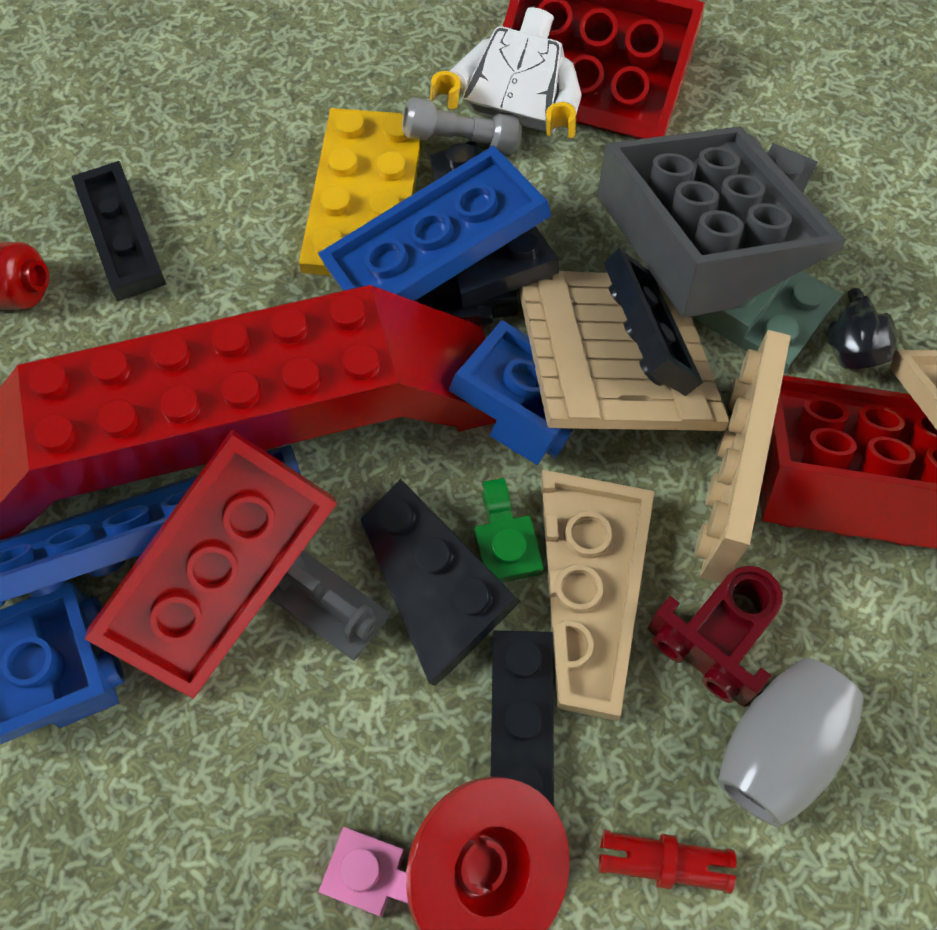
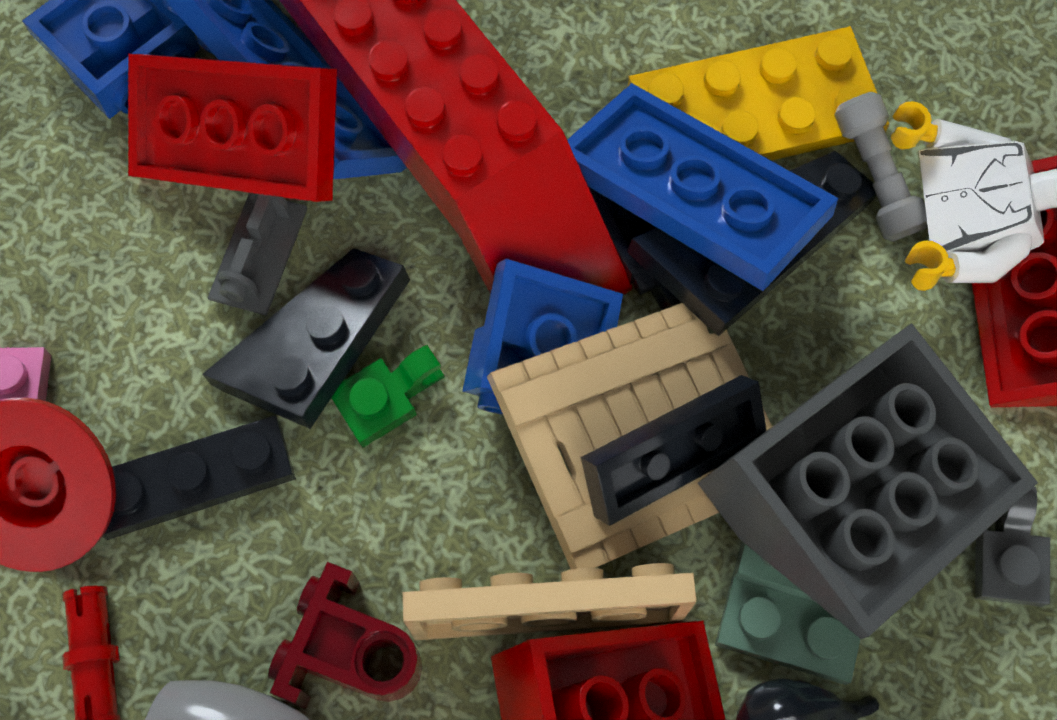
camera: 70 degrees right, 5 degrees up
(594, 580) = (372, 497): tan wing -> none

